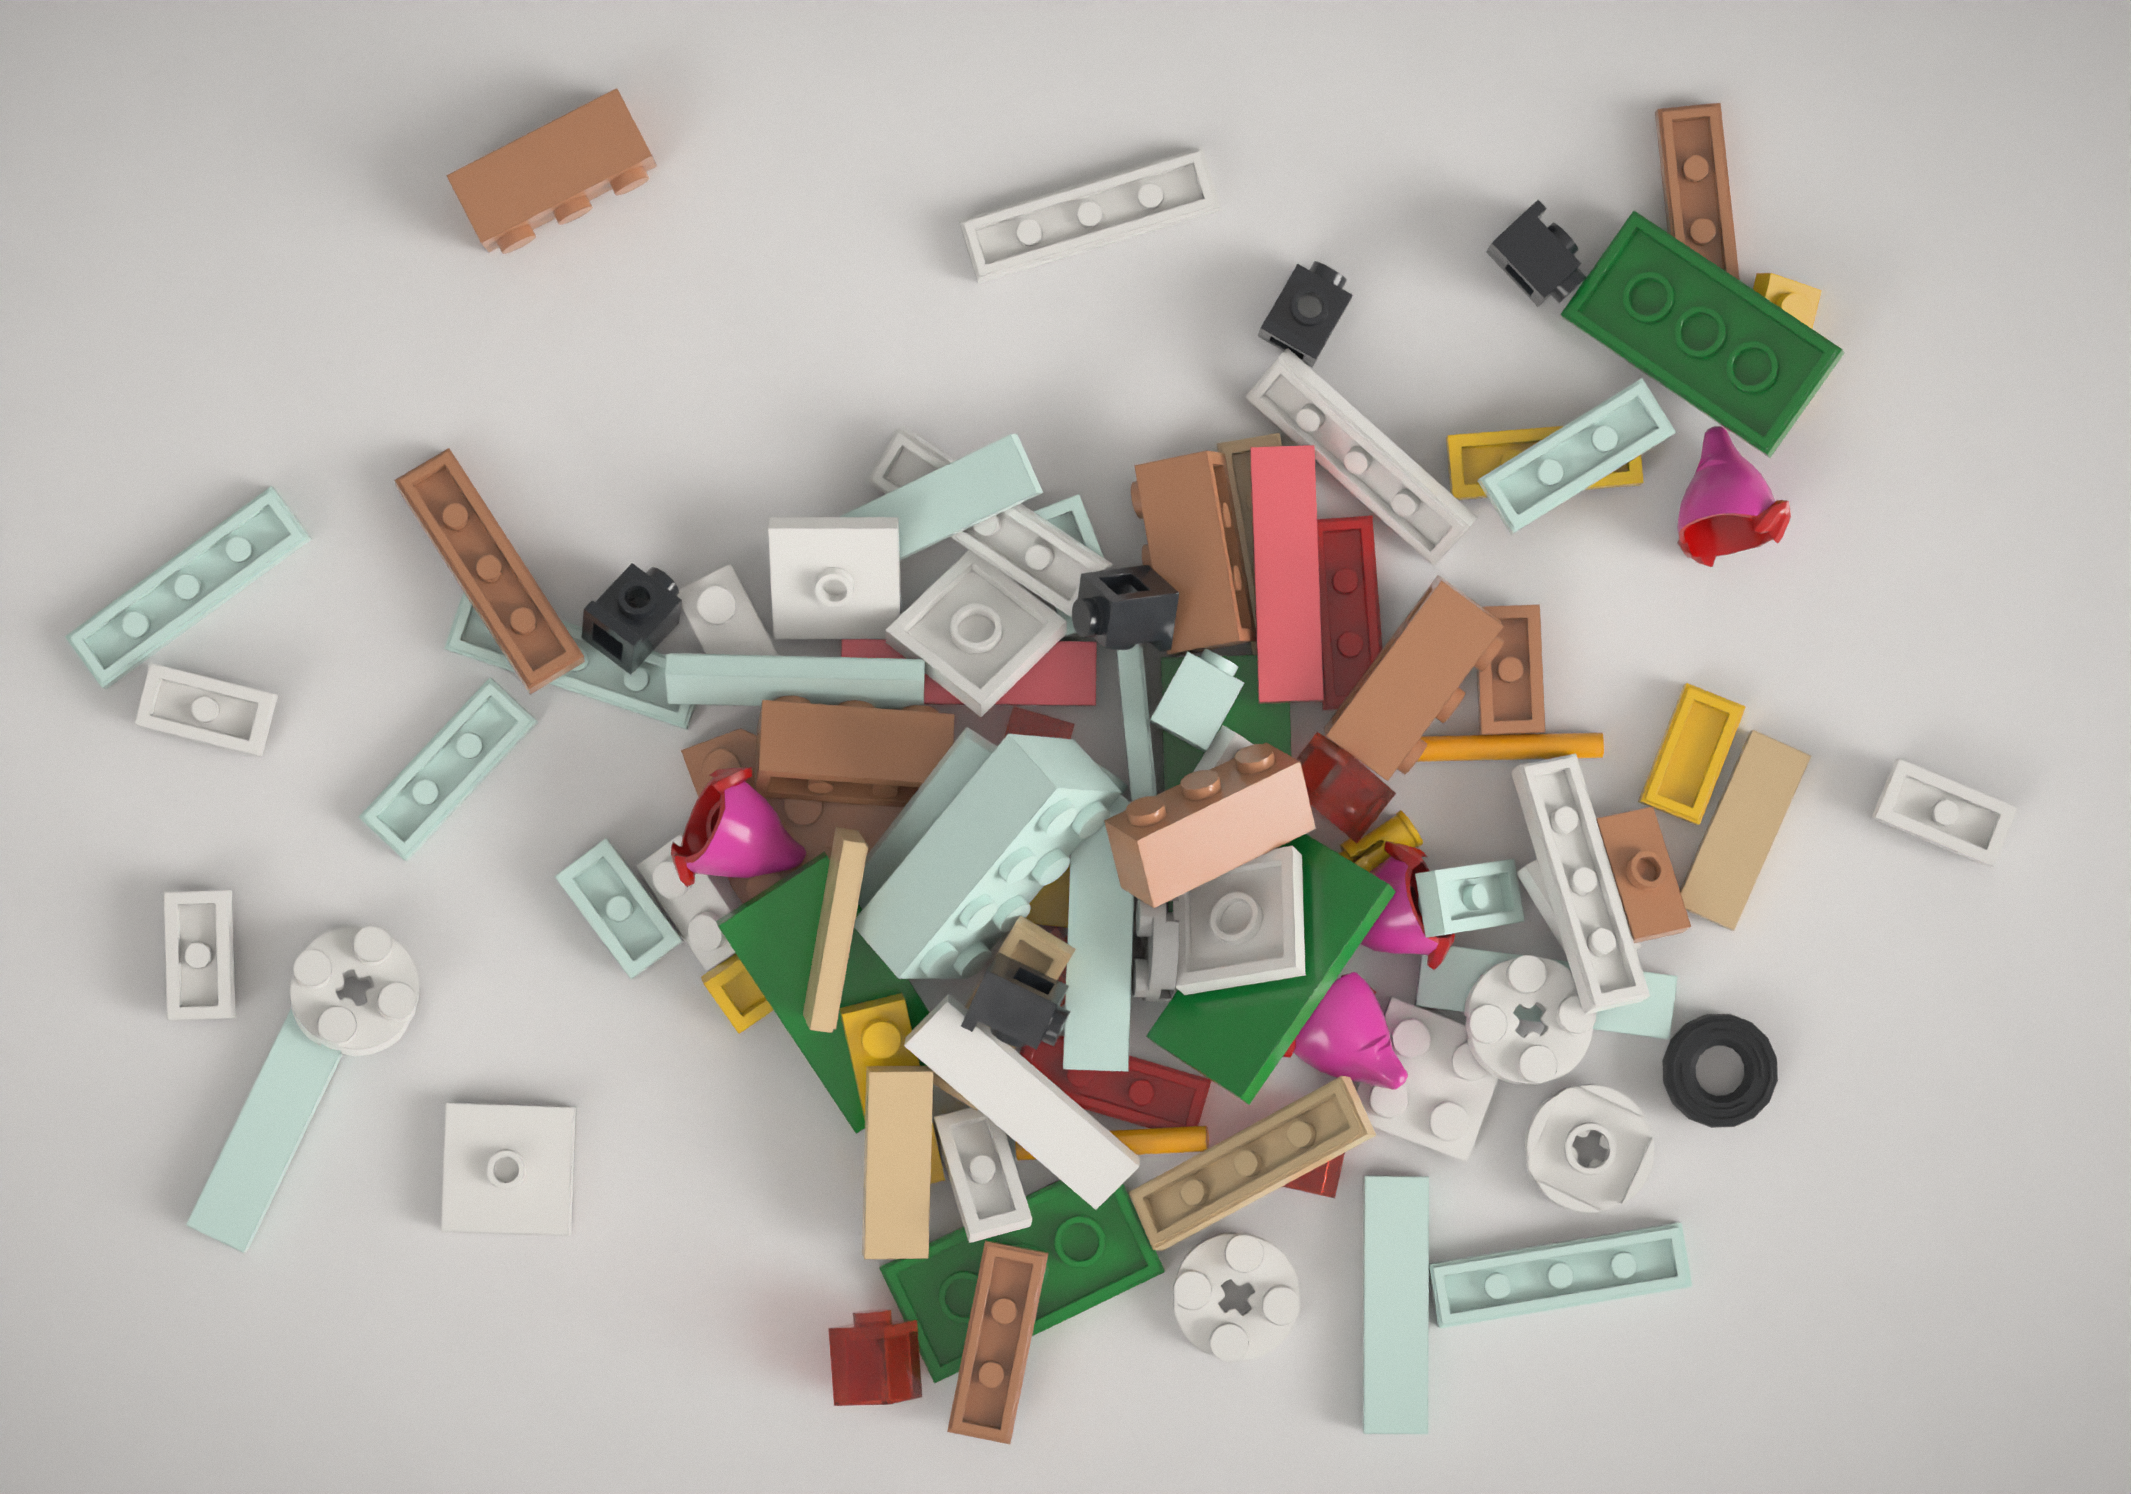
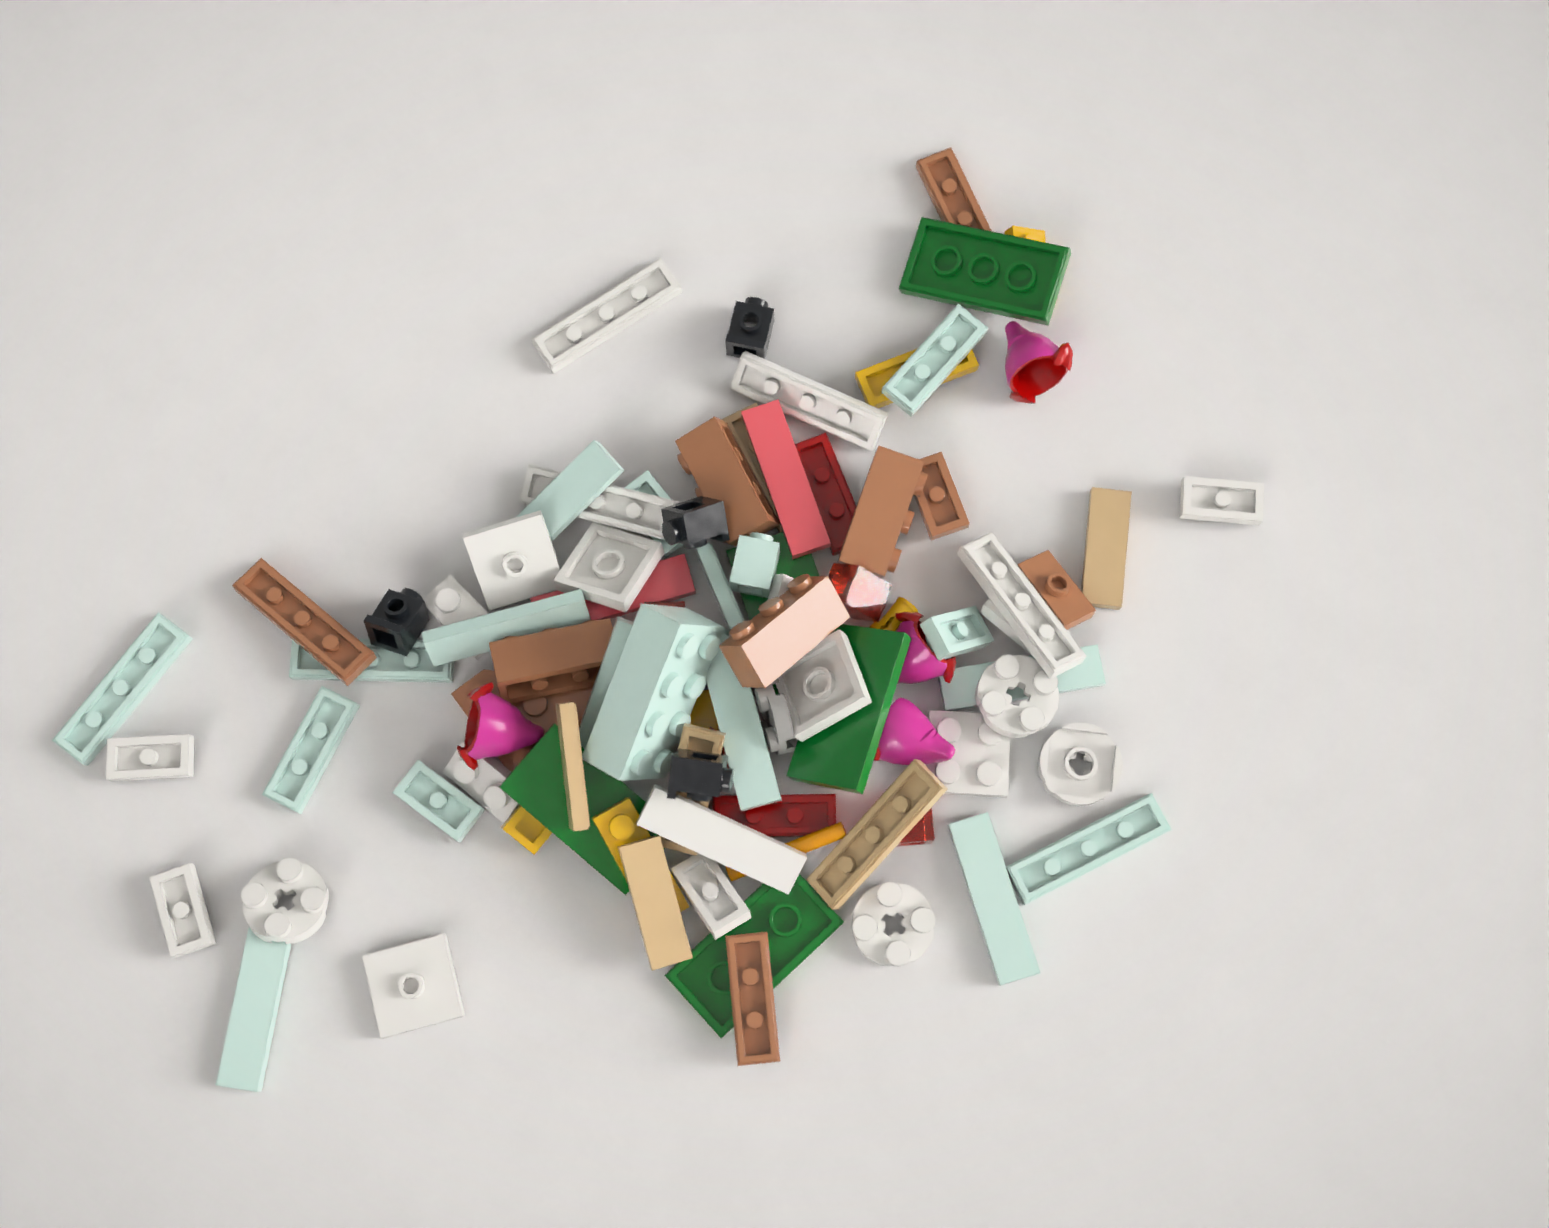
camera: 10 degrees left, 10 degrees down
(553, 173) = (281, 380): nougat brick -> none
(875, 1360) = (678, 1033): clear red brick -> none
(1512, 746) = (951, 541): light orange bar -> none
(1538, 257) = (874, 259): black brick -> none
(1691, 754) = (1060, 513): yellow tile -> none
(1759, 1070) = (1160, 676): black tyre -> none

